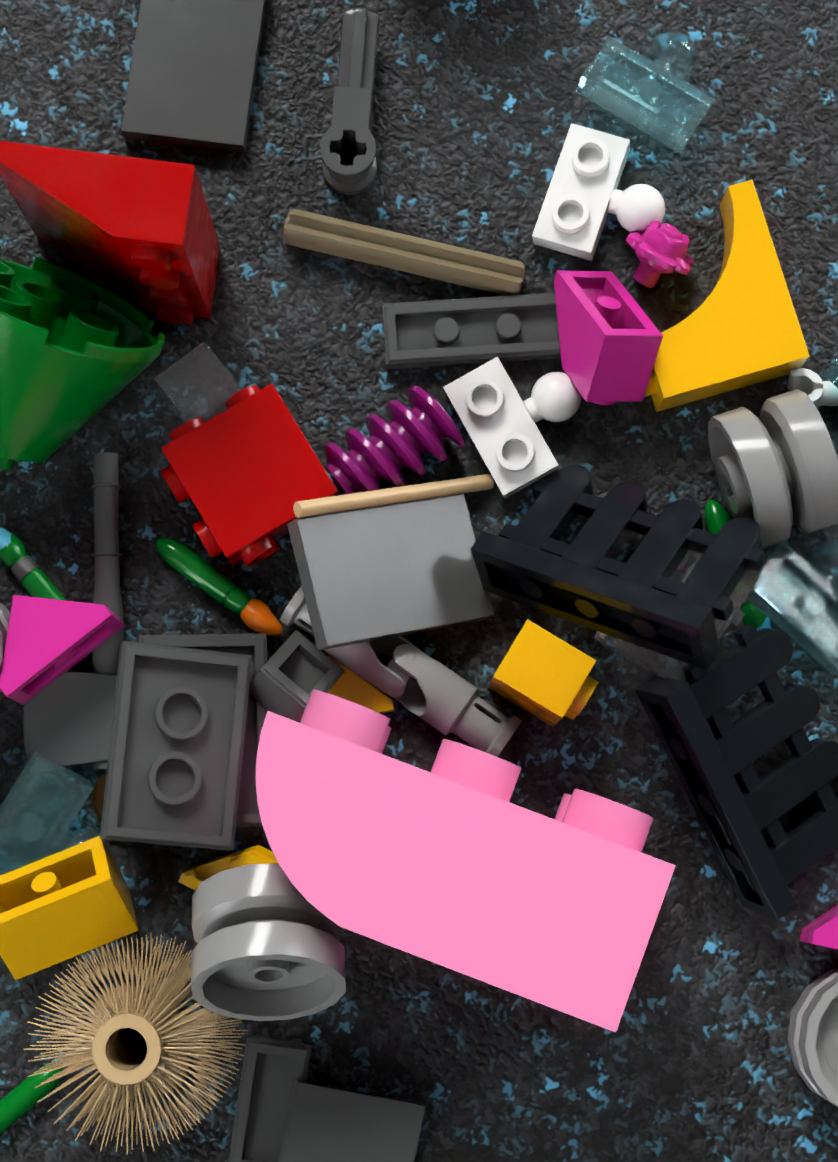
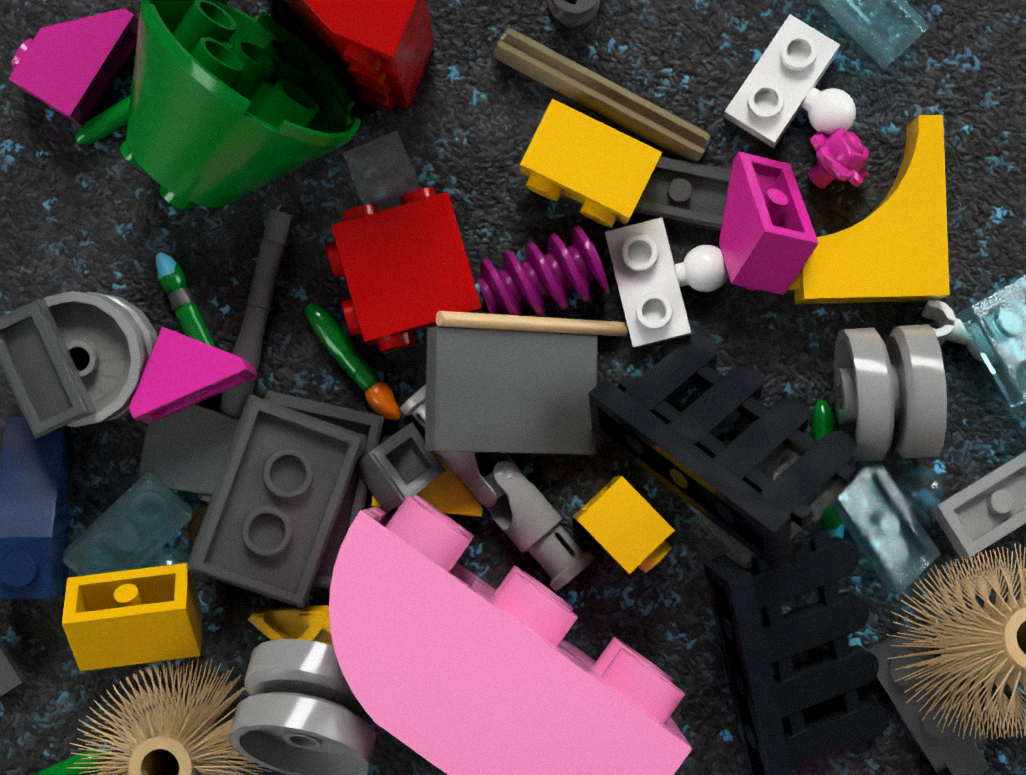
camera: 15 degrees right, 5 degrees up
(408, 320) = (588, 164): none -> yellow brick

